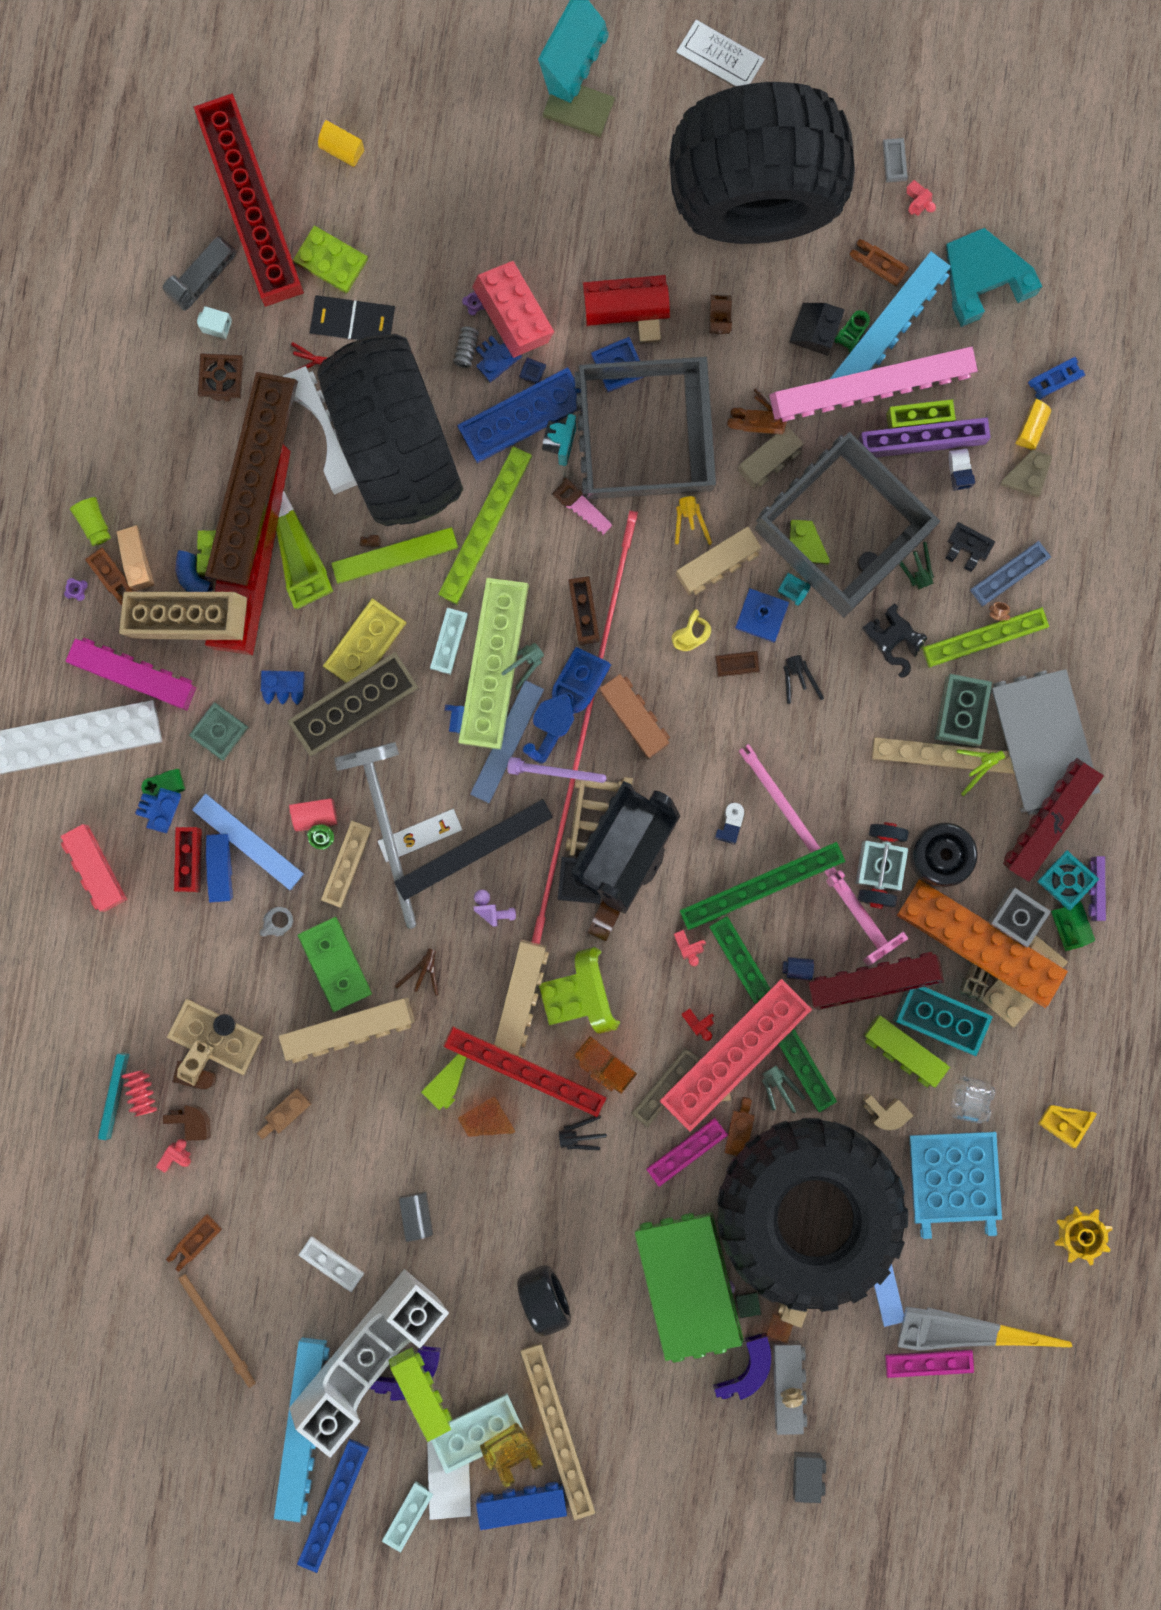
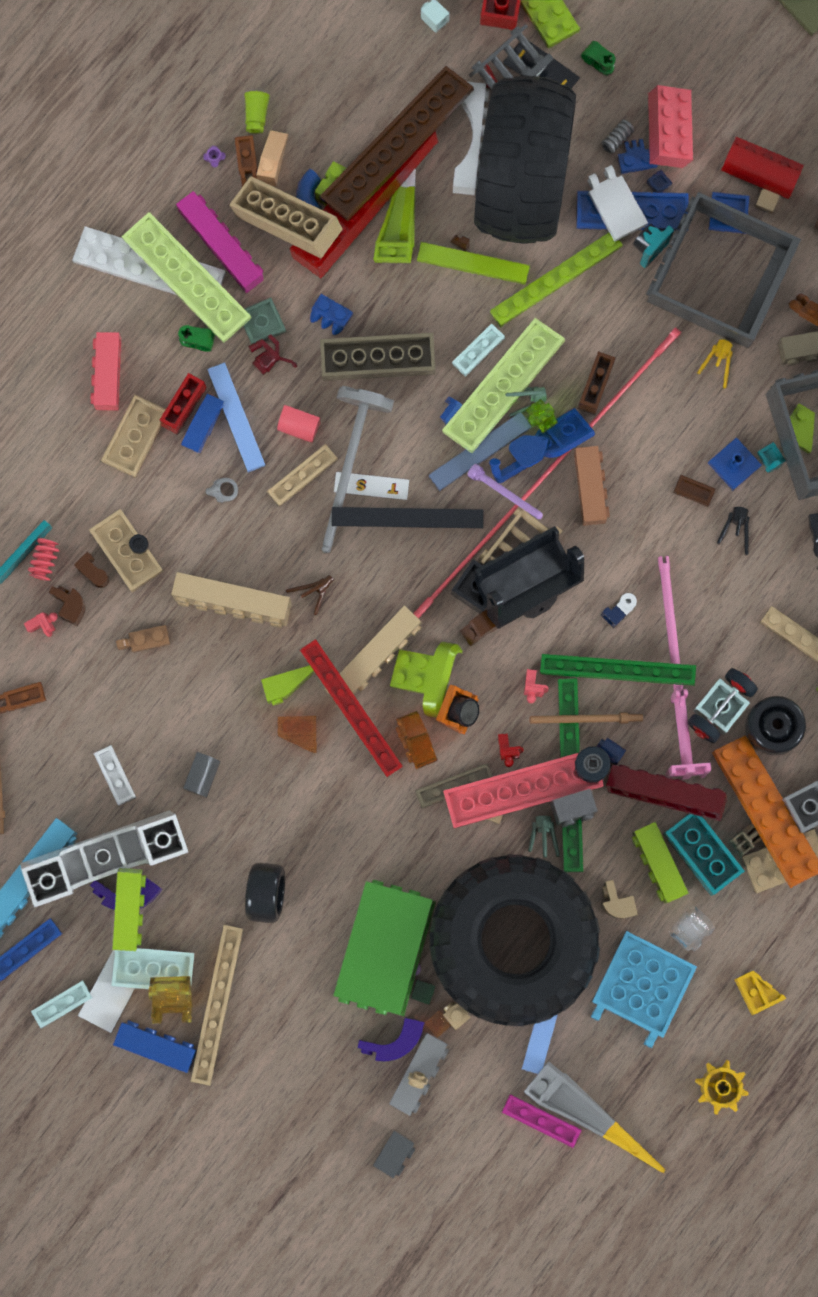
camera: 25 degrees right, 5 degrees down
(118, 730) = (186, 277): none -> yellowish green plate
(158, 917) = (134, 436): none -> tan tile
(159, 809) = (183, 354): blue hinge -> none
(194, 1062) = (99, 558): tan leg -> none
(222, 378) = (416, 58): reddish brown piece -> none
(246, 765) = (265, 361): none -> dark red piece
(320, 842) = (289, 444): bright green plate -> none
(334, 964) = (249, 546): bright green container -> none
(340, 331) = (539, 60): none -> dark grey fence
(365, 642) = (413, 315): light yellow tile -> none
(400, 276) = (599, 57): none -> green piece
(468, 301) = (639, 103): medium lavender plate -> none
(489, 912) = (392, 572): lavender piece -> none
(503, 419) = (616, 204): none -> white tile
(548, 673) = (541, 415): none -> clear neon green brick
(570, 1139) = (356, 781): black plant -> none
(582, 506) = (640, 304): bright pink piece -> none
(630, 1013) = (458, 709): none -> piece
(685, 640) = (663, 446): light yellow piece -> none
(686, 1152) = (442, 845): dark pink tile -> none
(718, 561) = (723, 403): tan brick -> none
(739, 1128) = (496, 847): dark orange plate -> none
(785, 991) = (592, 764): none -> black wheel
(791, 929) = (622, 718): none -> medium nougat bar
(796, 1049) = (574, 807): none -> flat silver brick

